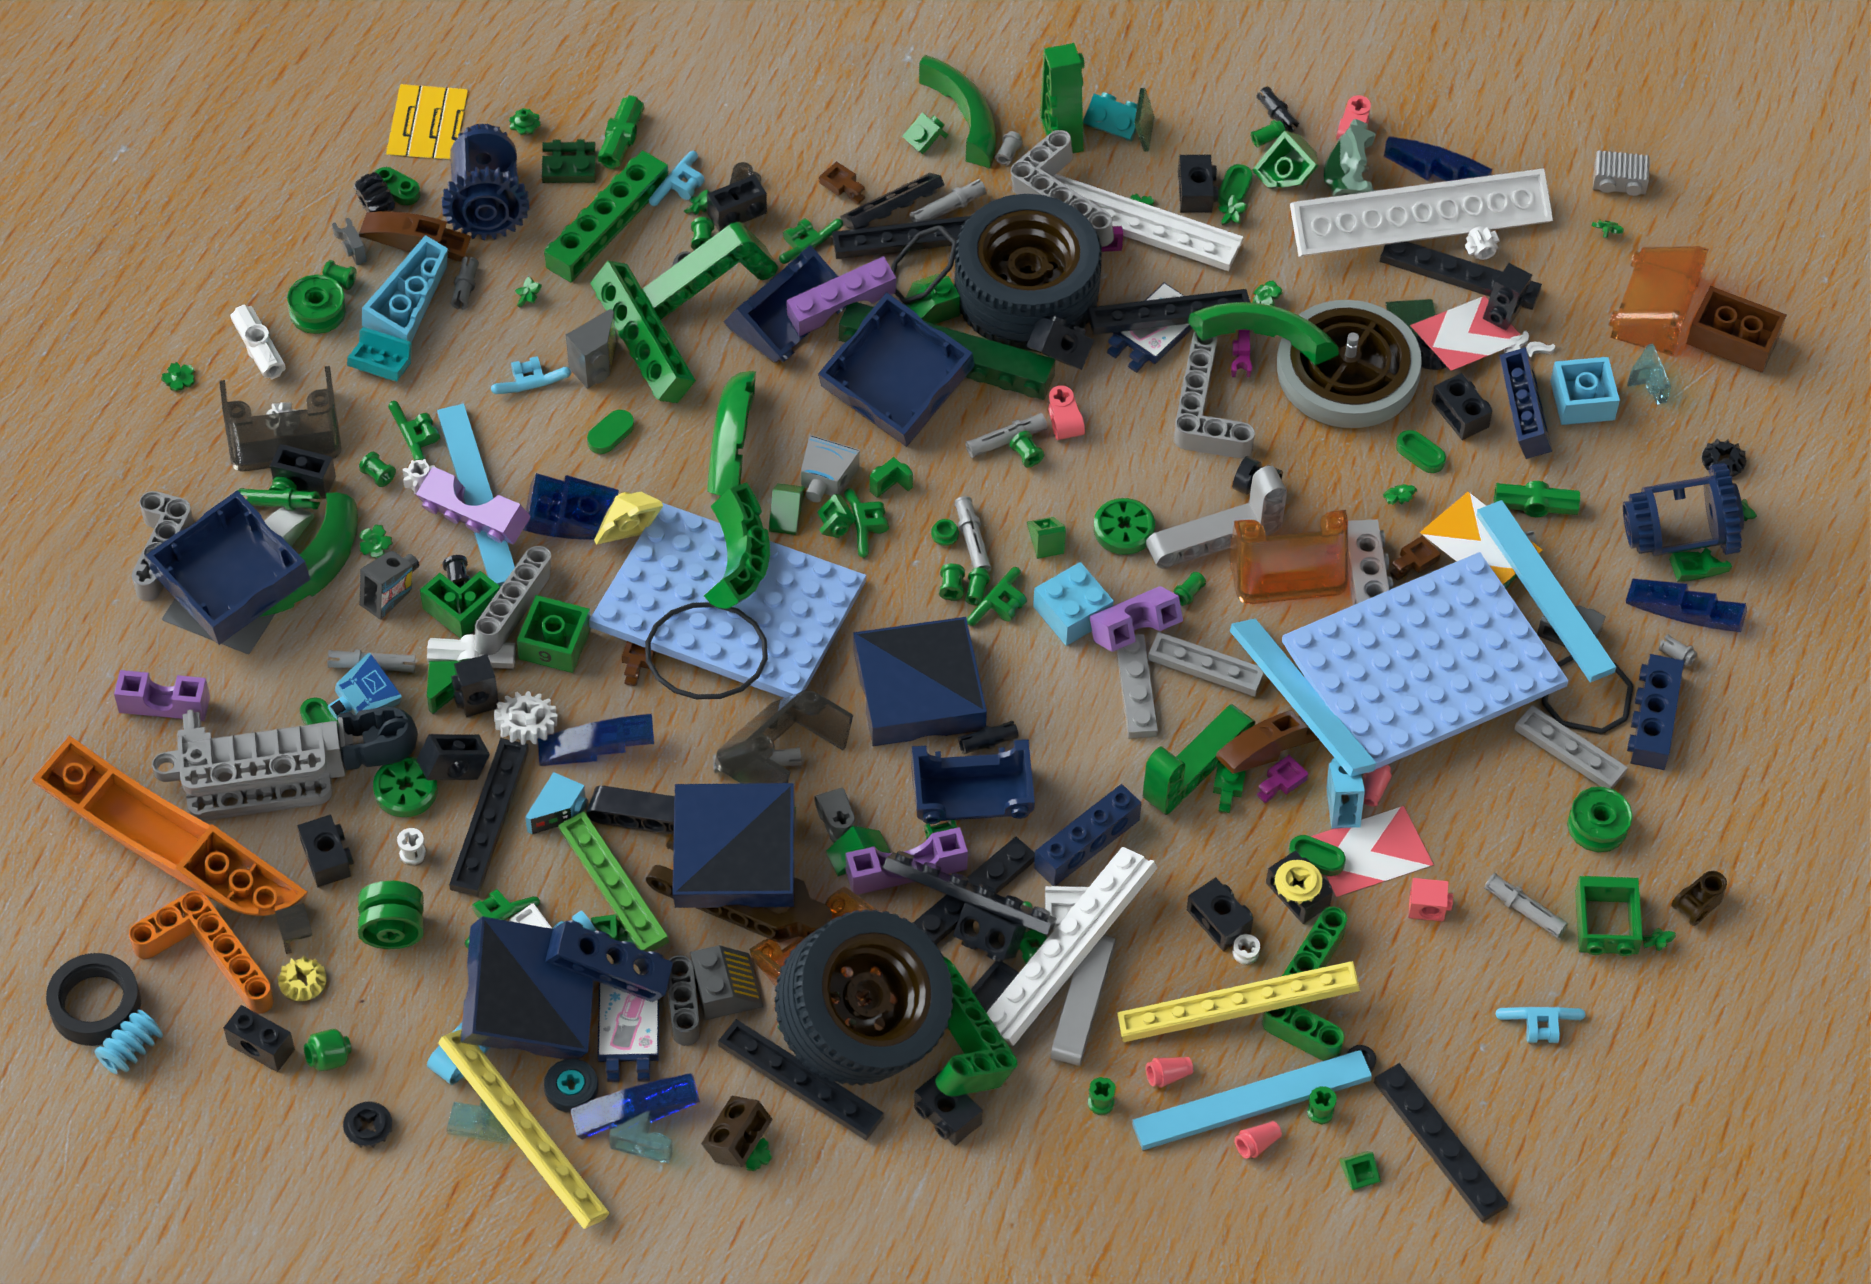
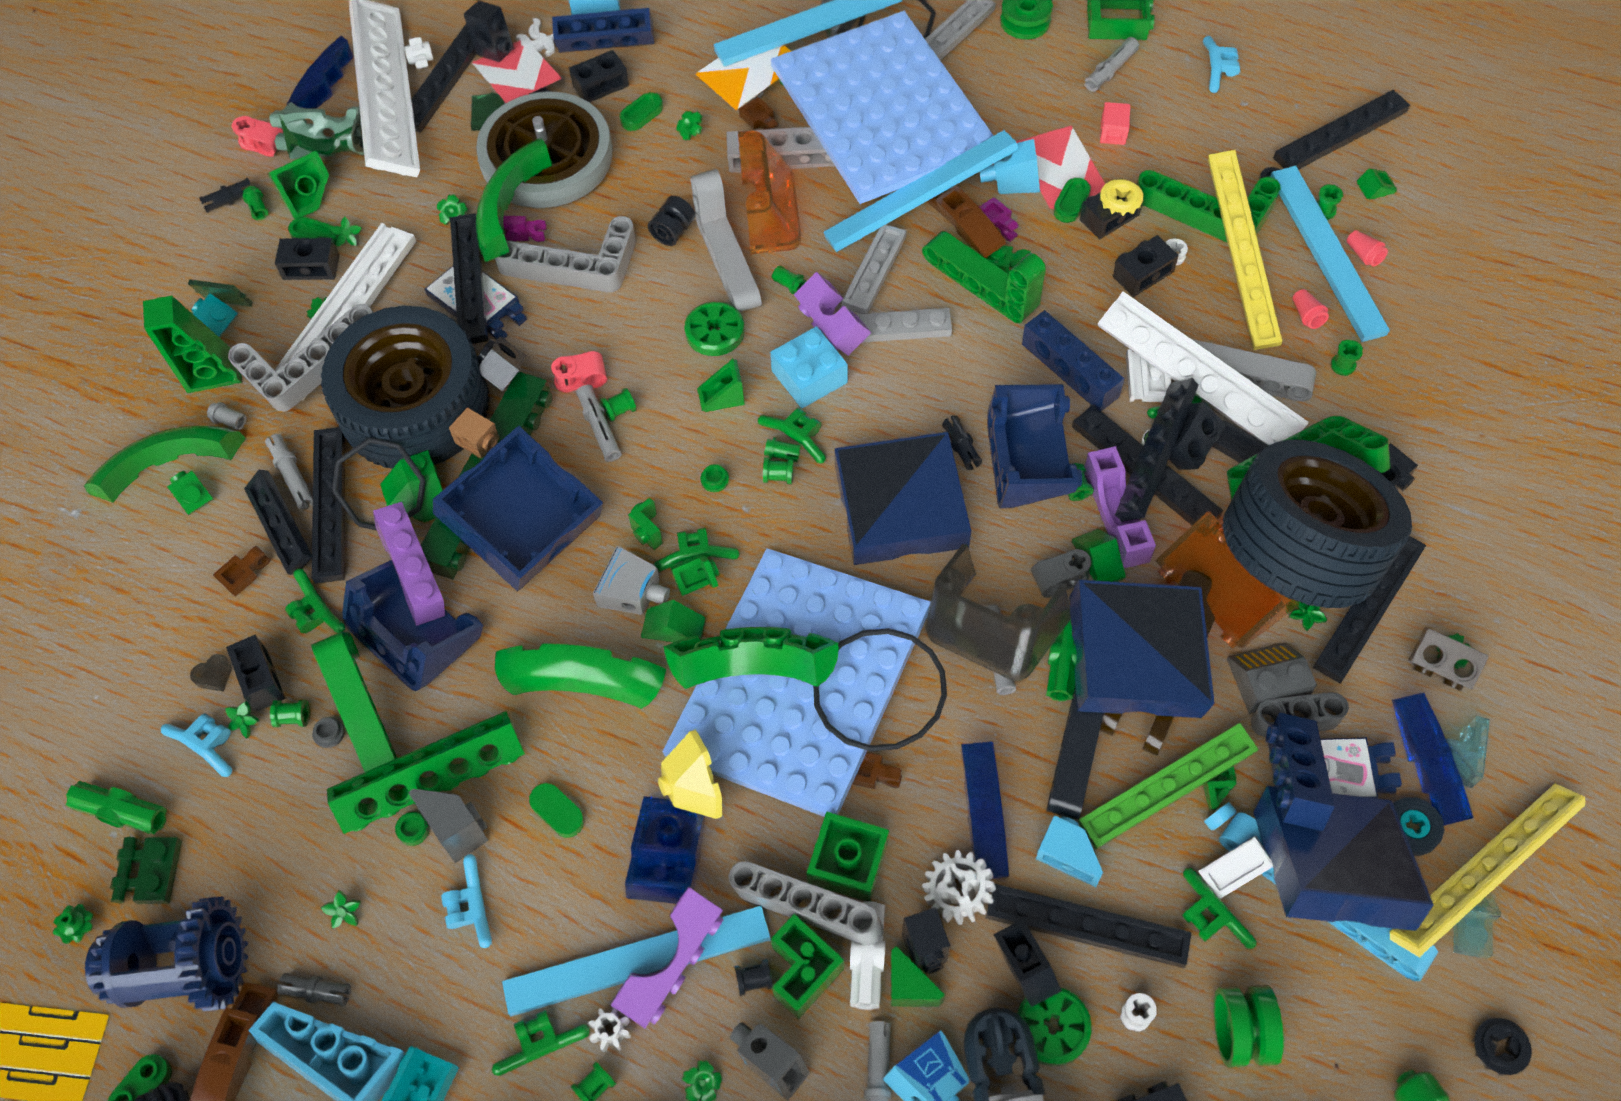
camera: 85 degrees left, 5 degrees up
(605, 216) = (189, 769): green brick -> none
(969, 525) = (720, 453): light grey pin -> none
(974, 326) = (474, 433): none -> medium nougat brick
(1538, 498) = (701, 34): green piece -> none

